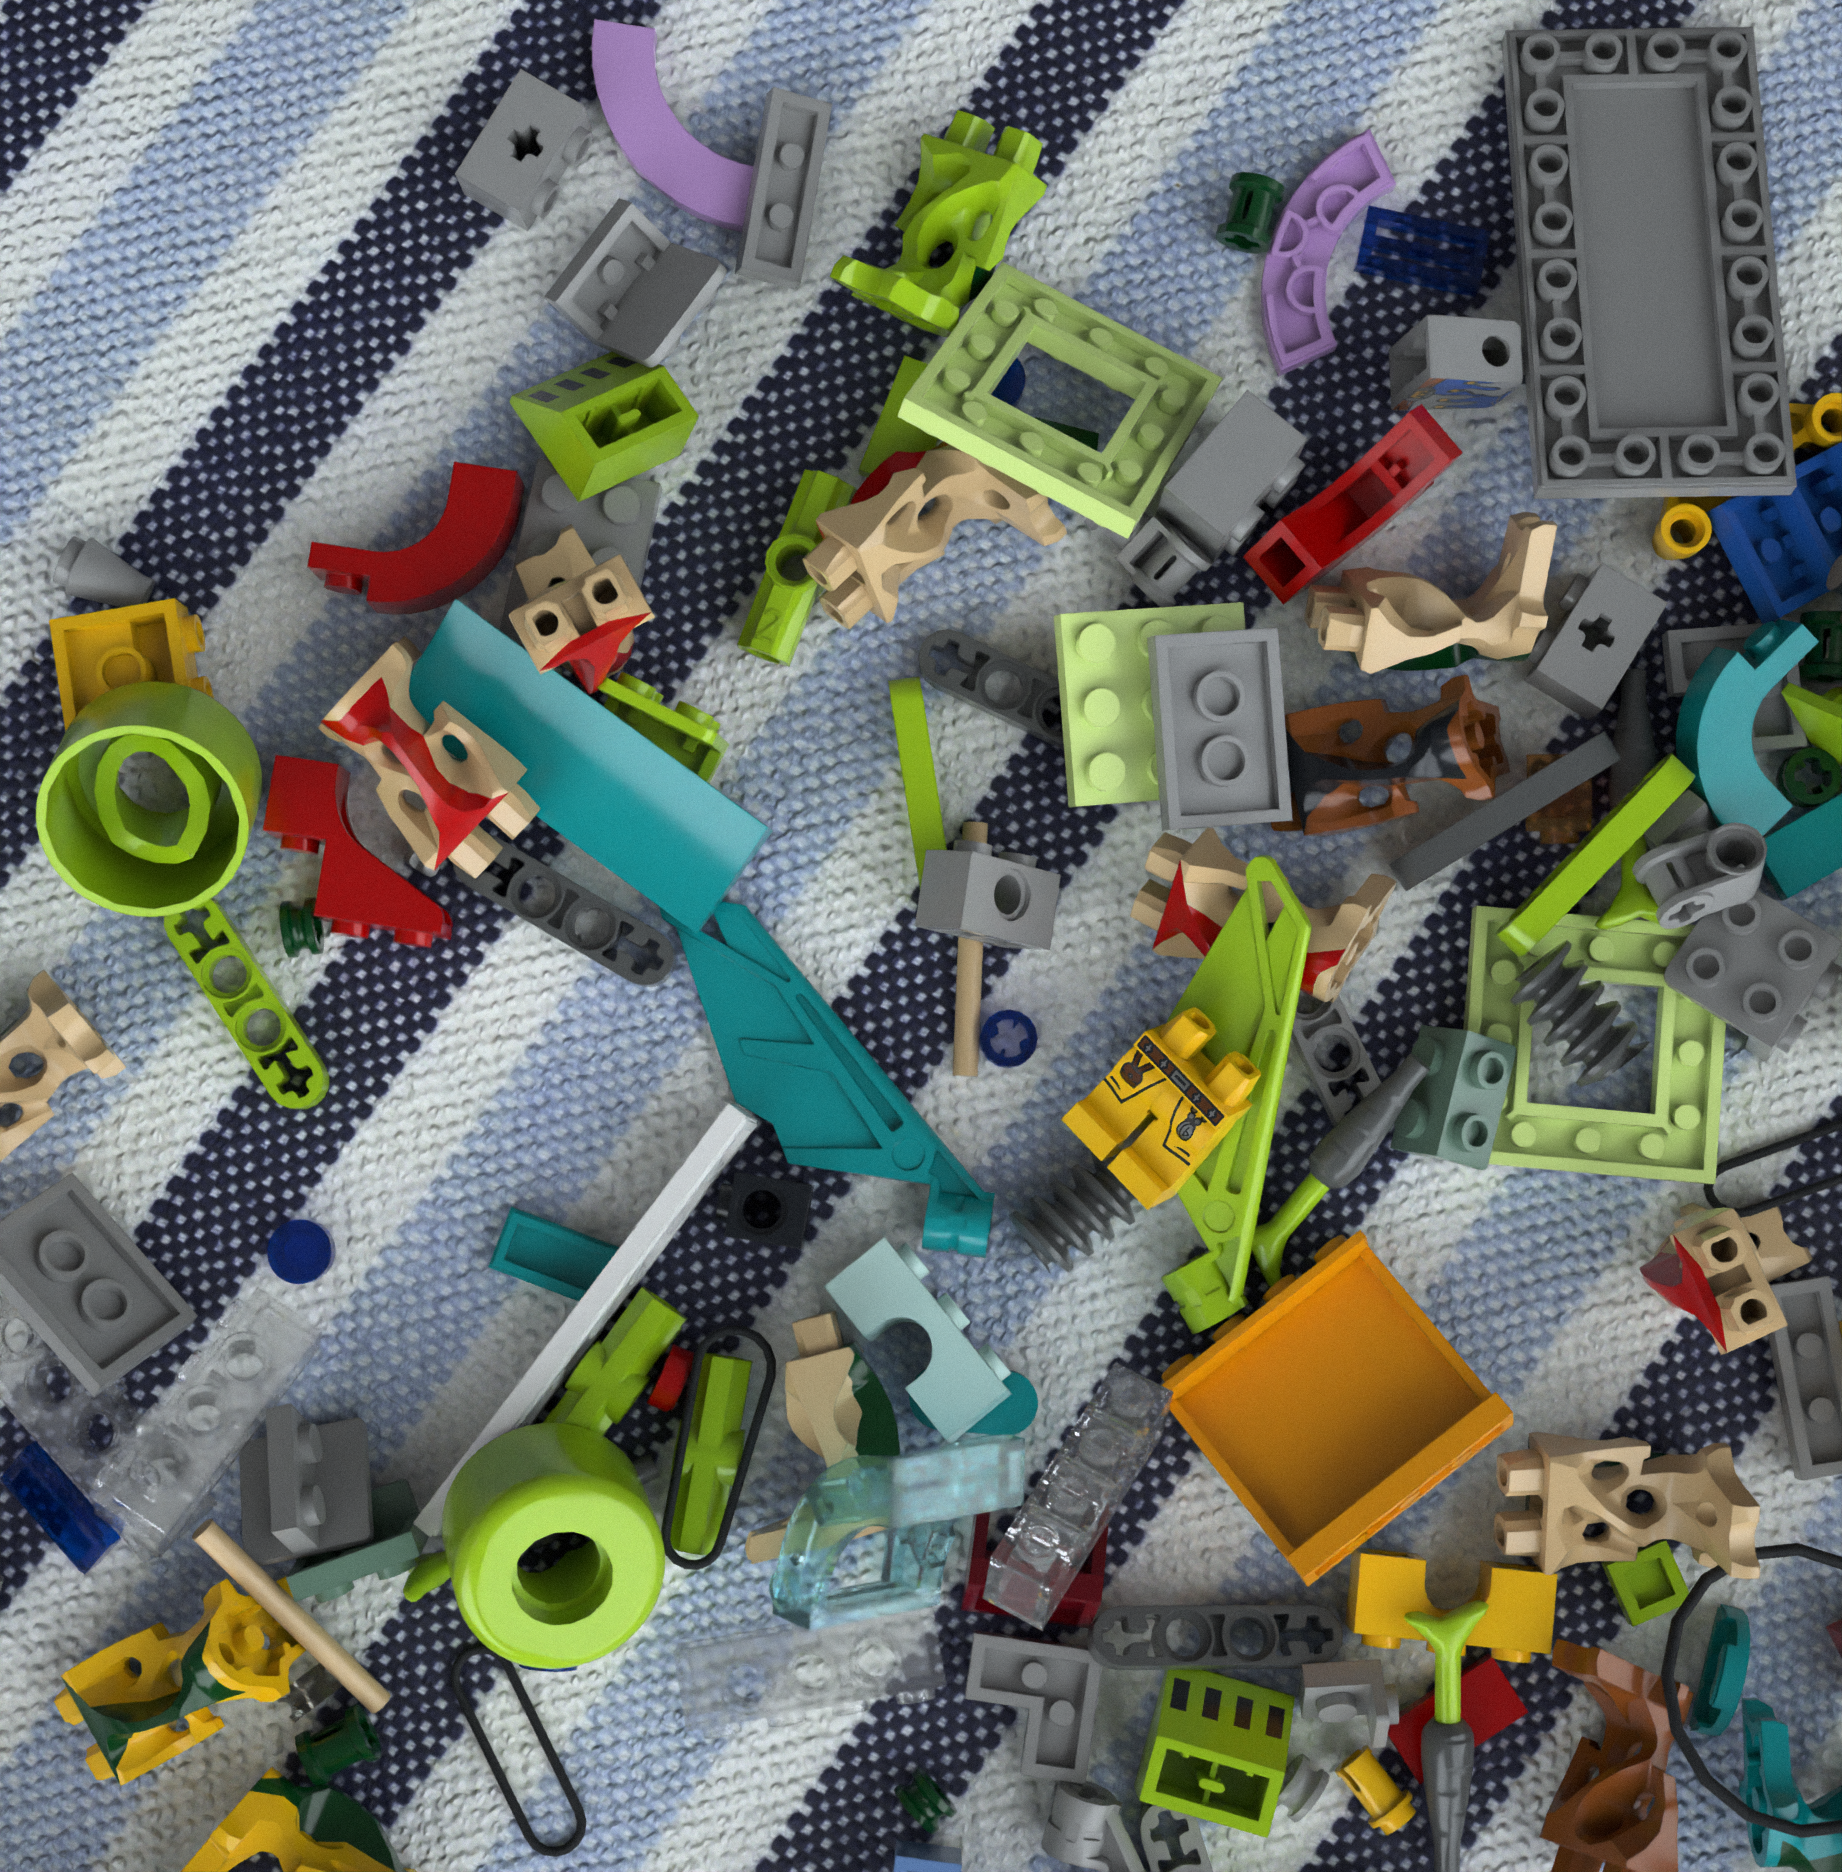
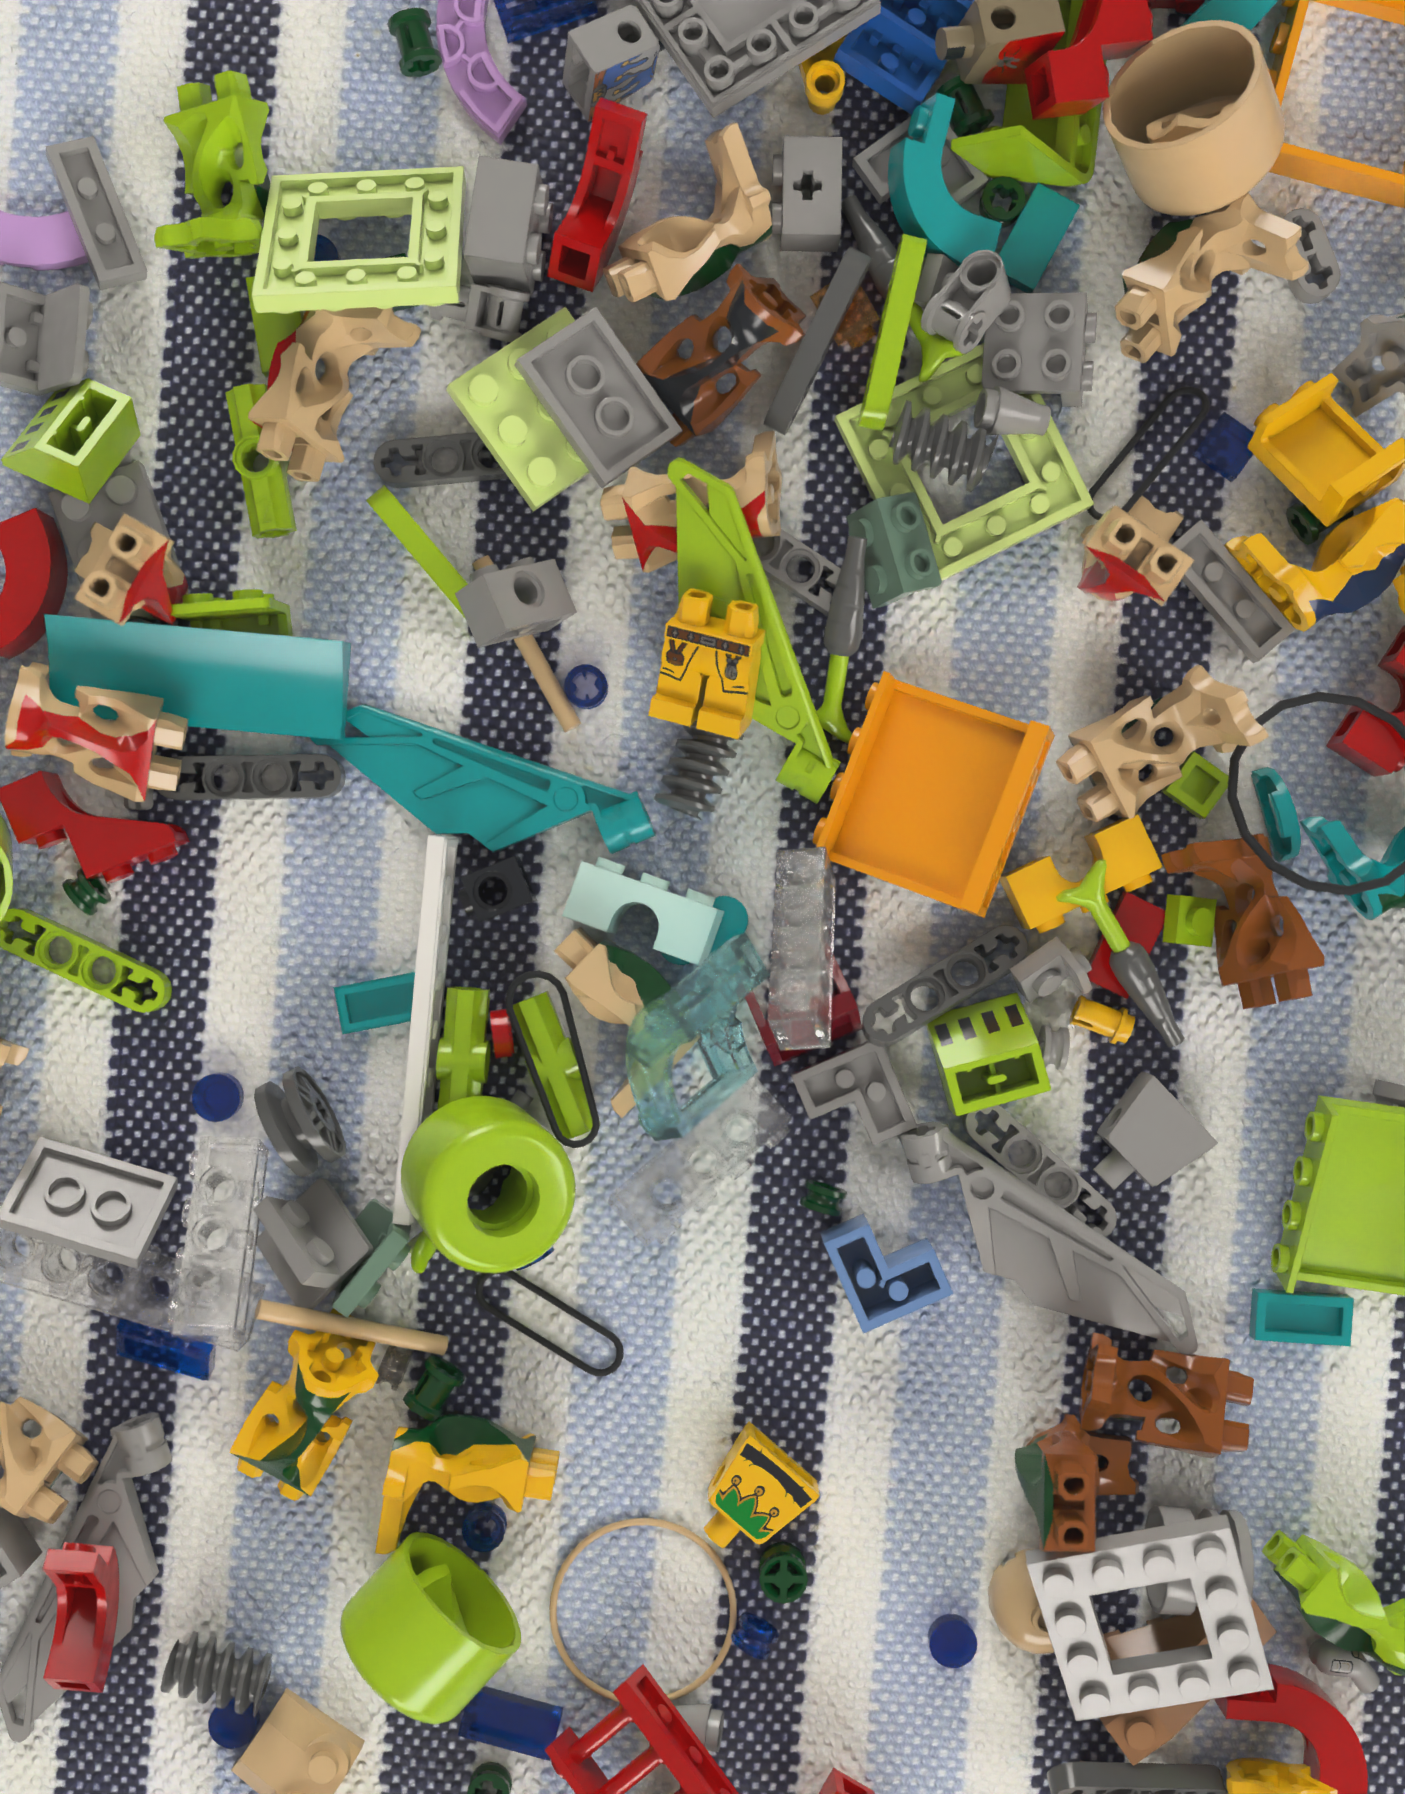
camera: 30 degrees left, 5 degrees up
(380, 1340) = (299, 1122): none -> dark grey wheel
(1546, 1736) = (1189, 920): none -> lime plate
(1675, 1023) = (1009, 413): none -> light grey cone

